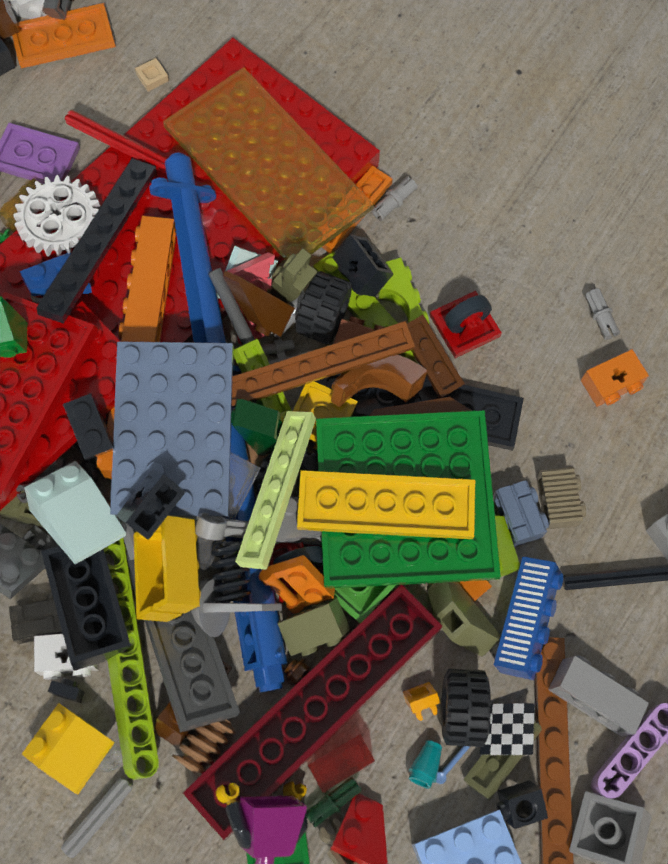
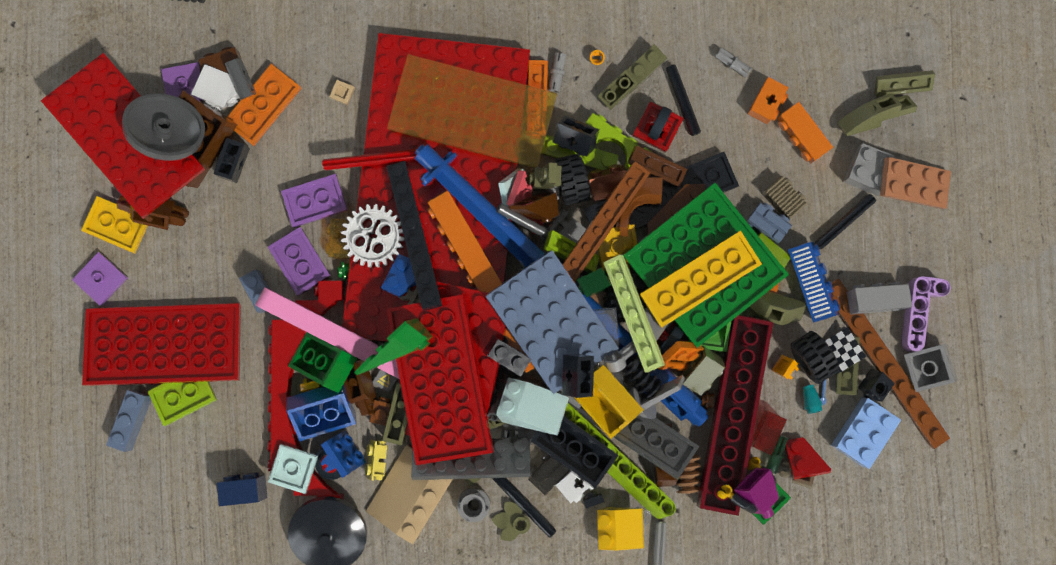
camera: 30 degrees left, 15 degrees up
(453, 207) = (597, 53): none -> light orange hinge
(472, 257) = (632, 77): none -> olive slope
(515, 317) = (683, 100): none -> black axle
(634, 442) = (804, 133): none -> orange brick

